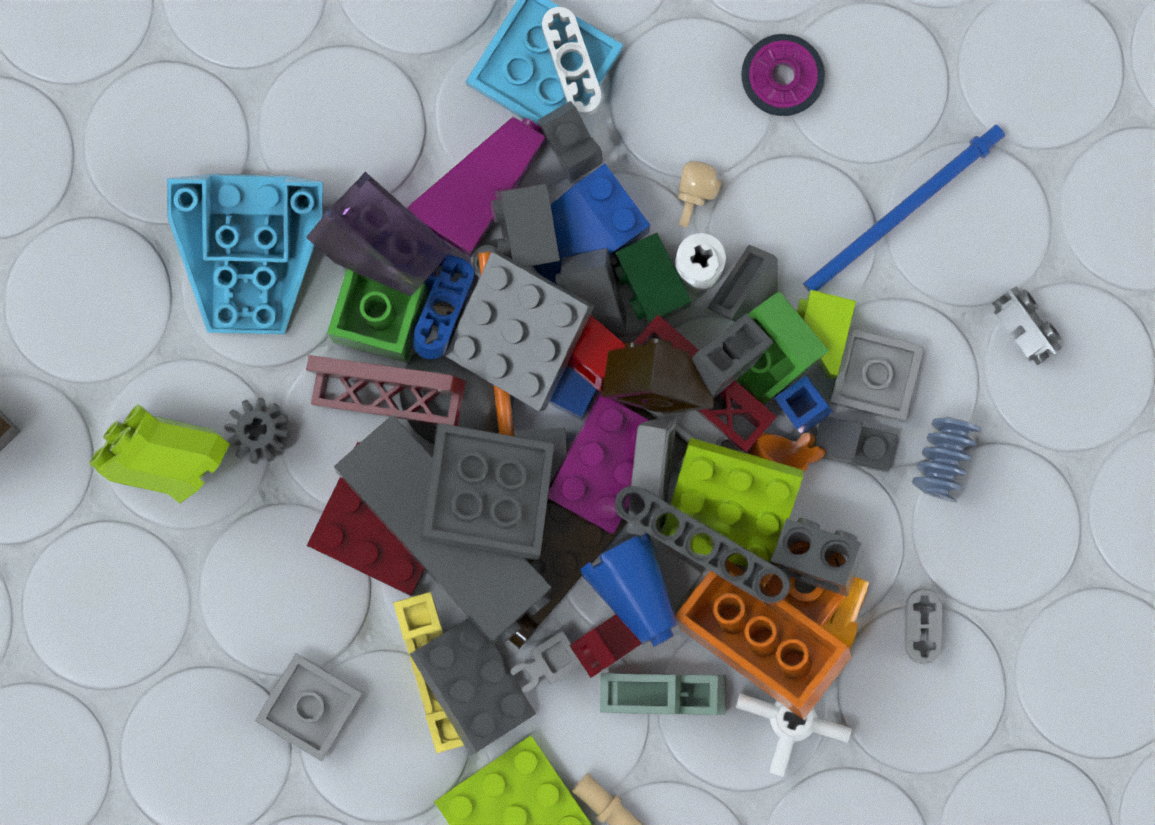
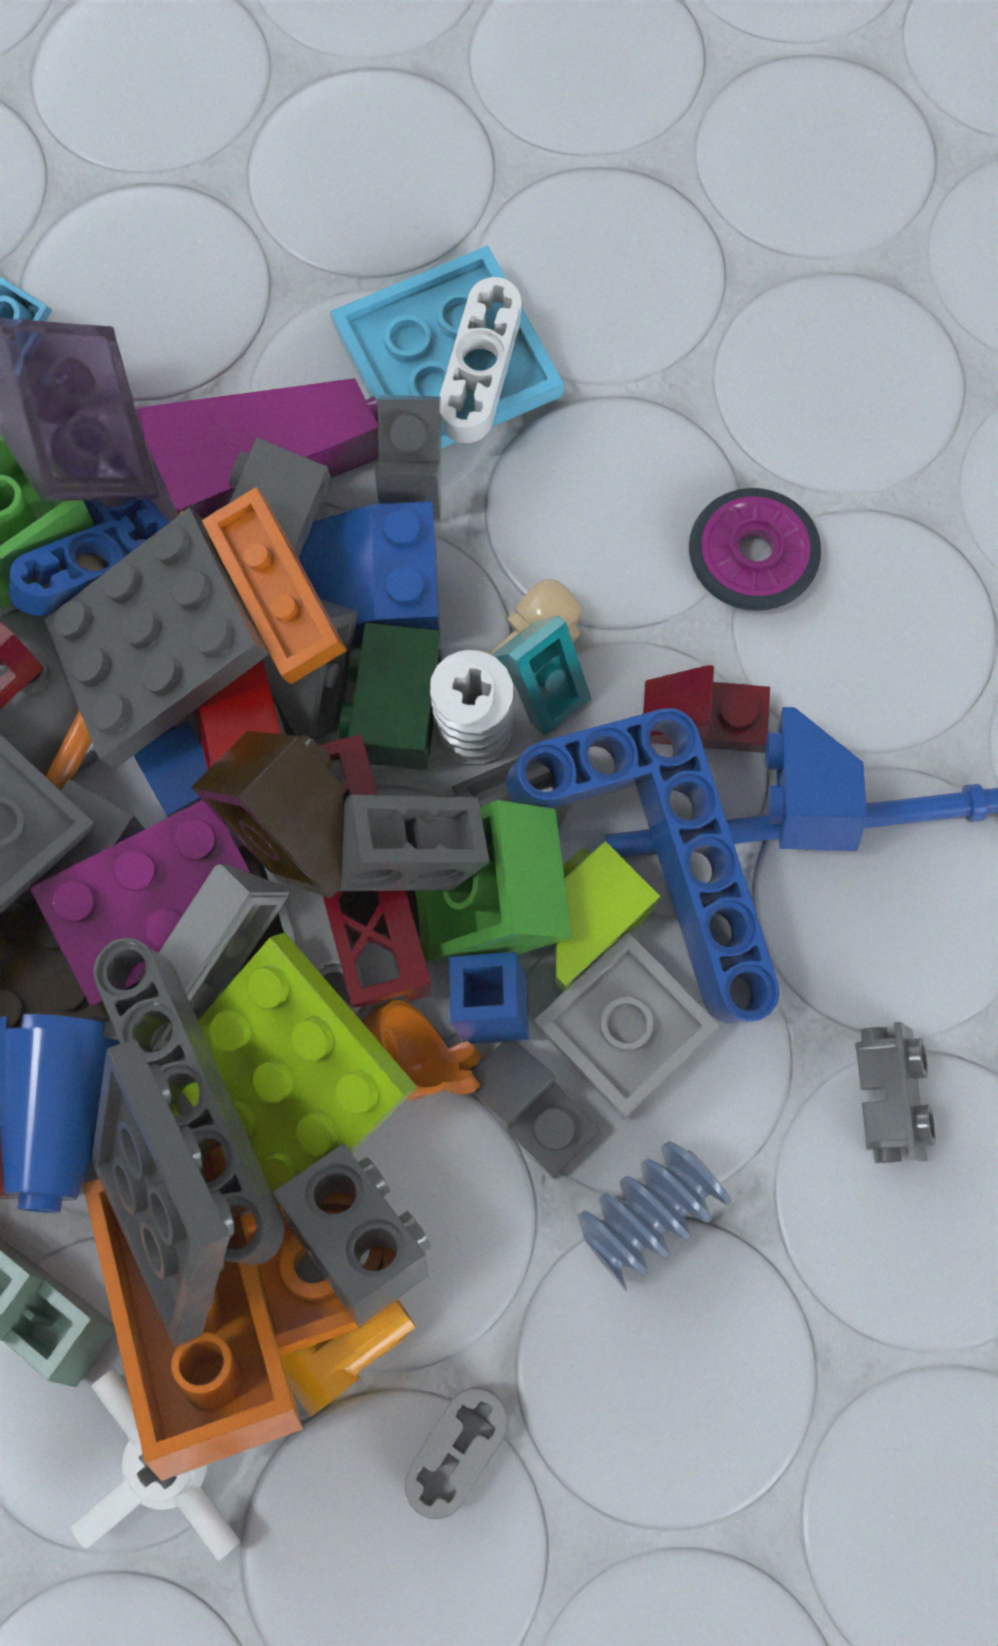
camera: 35 degrees right, 10 degrees down
(567, 267) = (273, 586): none -> orange plate
(718, 216) = (545, 672): none -> teal slope
(729, 591) = (158, 1192): none -> dark grey plate
(813, 185) = (724, 713): none -> dark red slope
(845, 268) = (674, 842): none -> blue beam
(899, 193) = (817, 789): none -> blue slope

